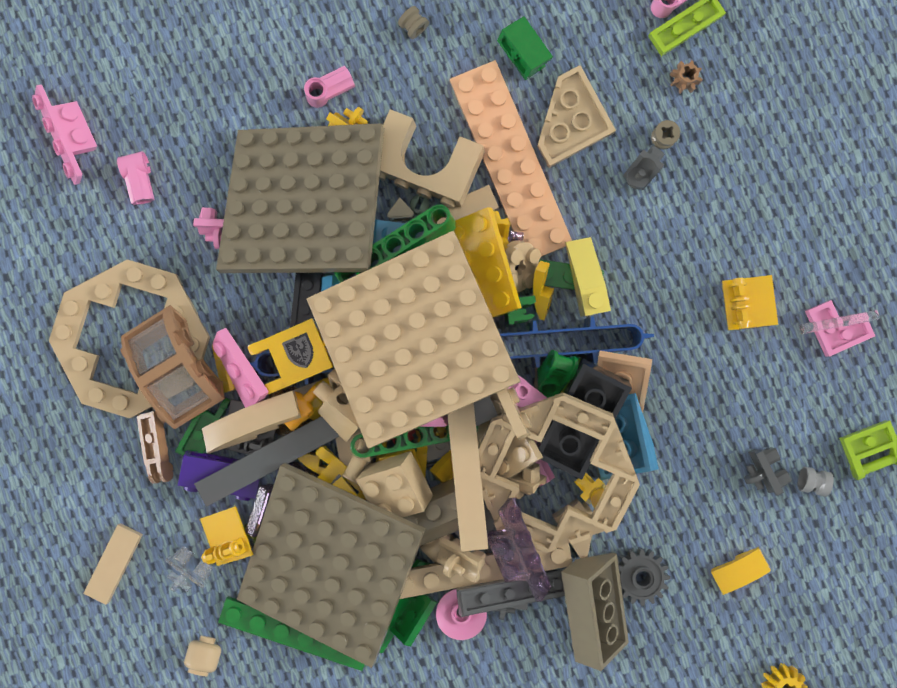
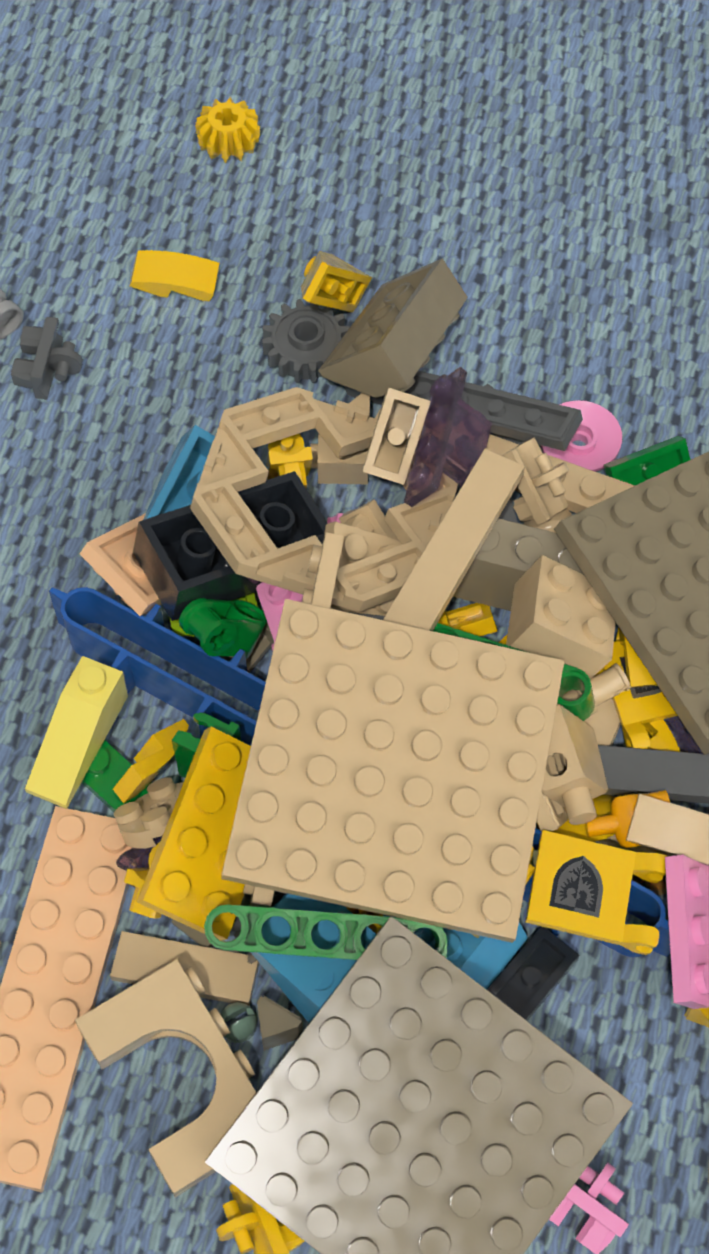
camera: 140 degrees left, 25 degrees down
(544, 534) = (395, 435): none -> tan slope
(651, 616) = (333, 282): none -> yellow slope

